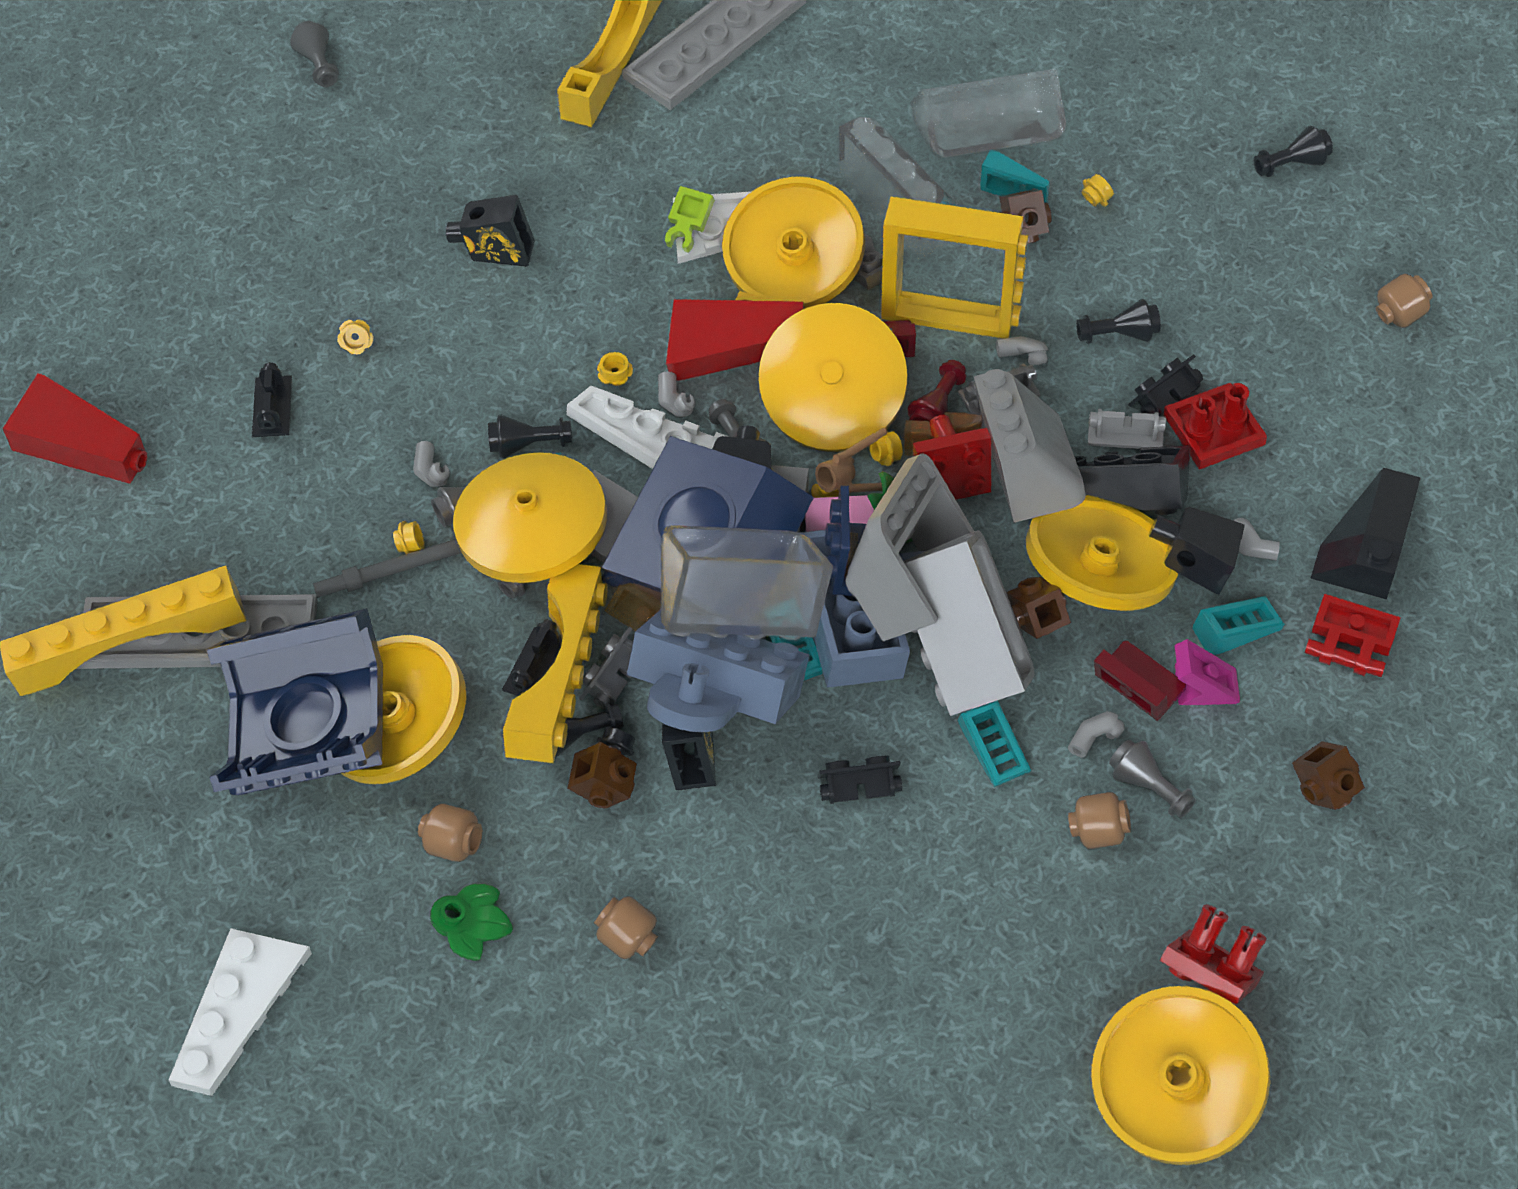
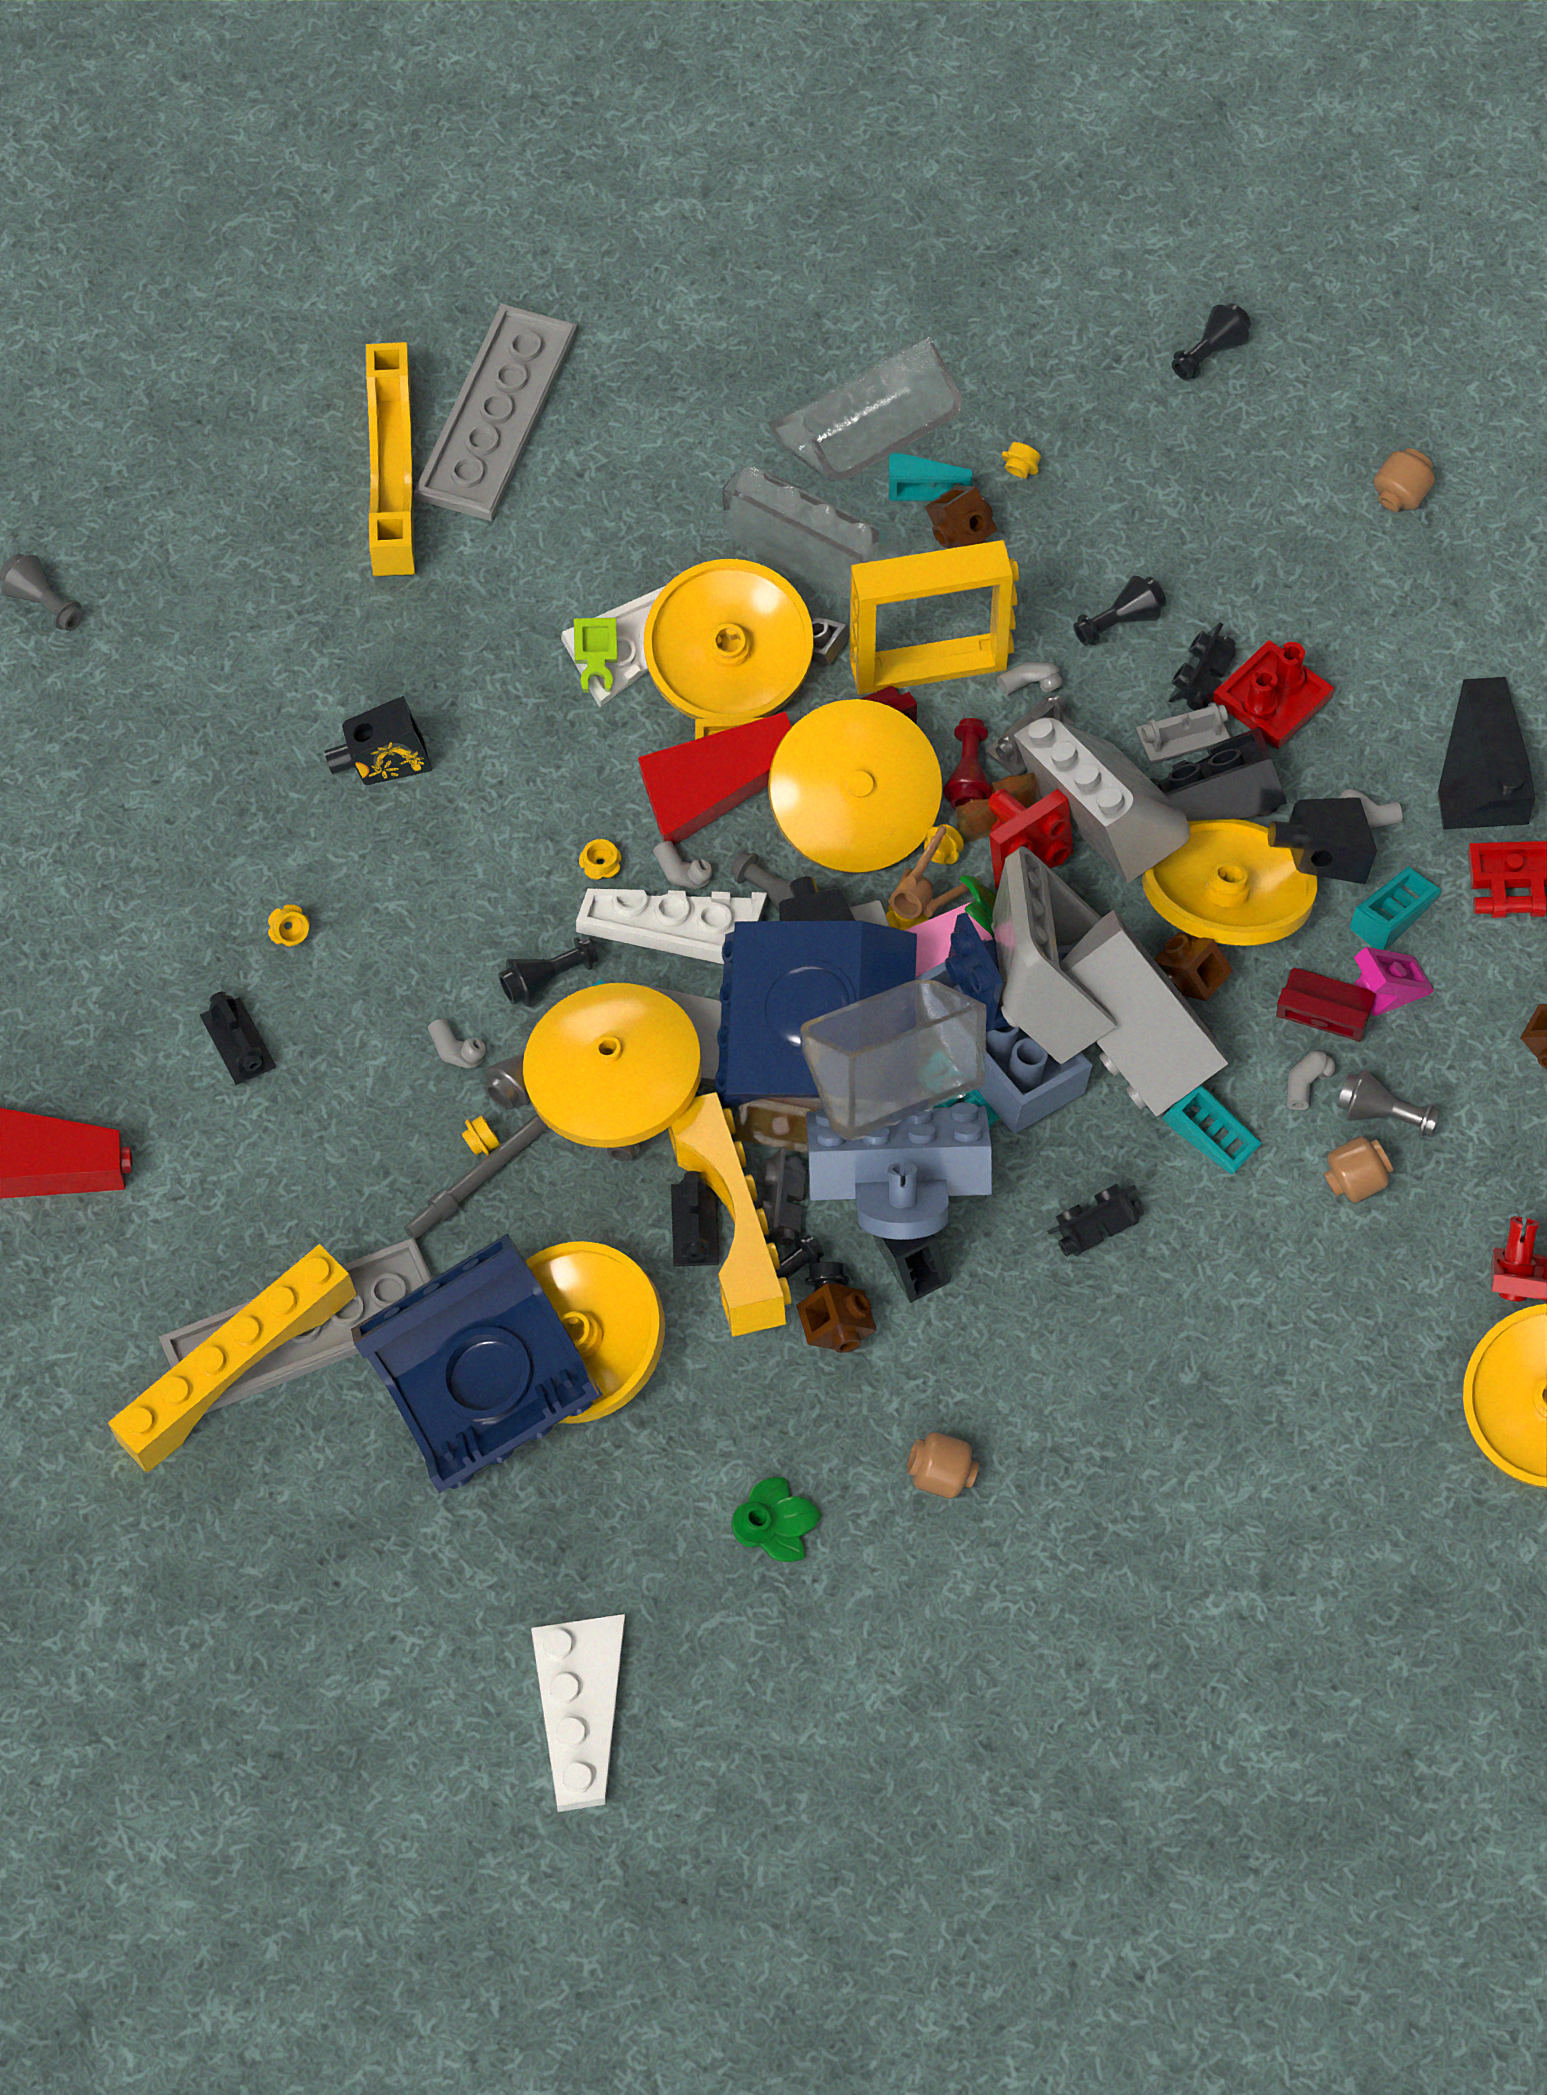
camera: 25 degrees left, 5 degrees up
(450, 832) = (708, 1438): medium nougat head -> none

